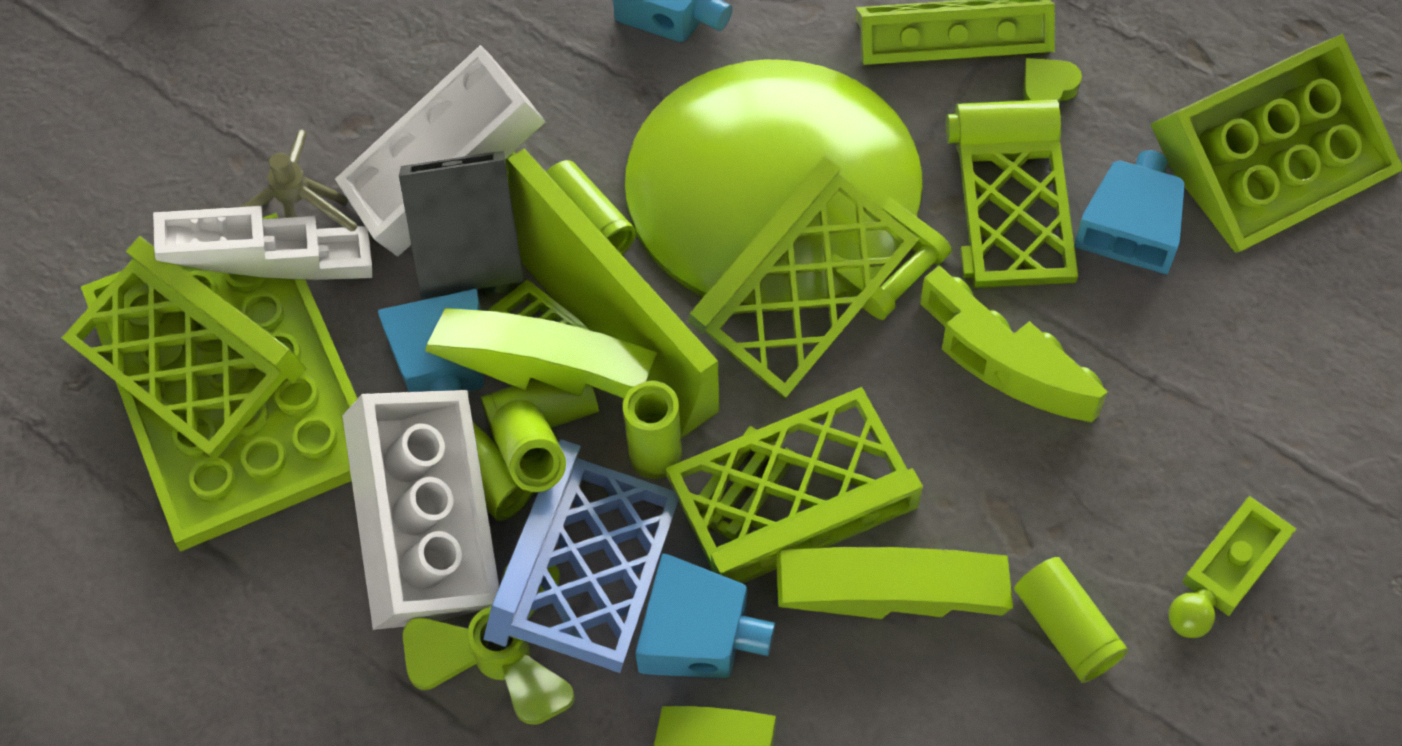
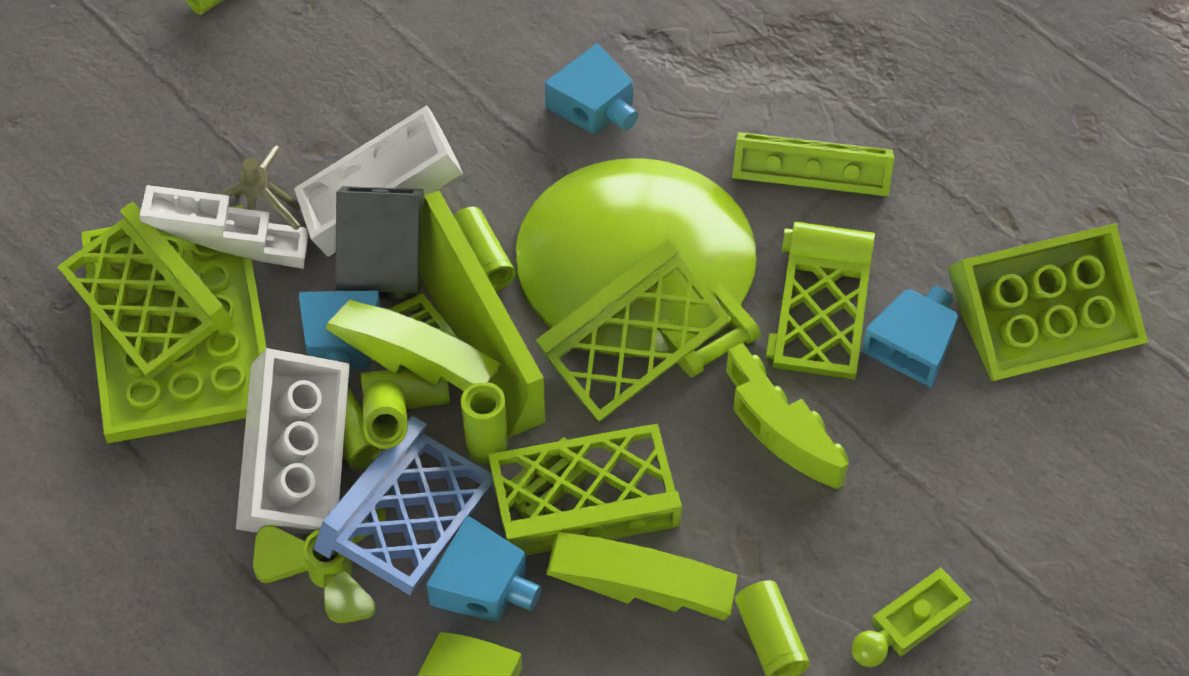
camera: 10 degrees right, 5 degrees down
(1050, 79) = (880, 218): lime tile -> none

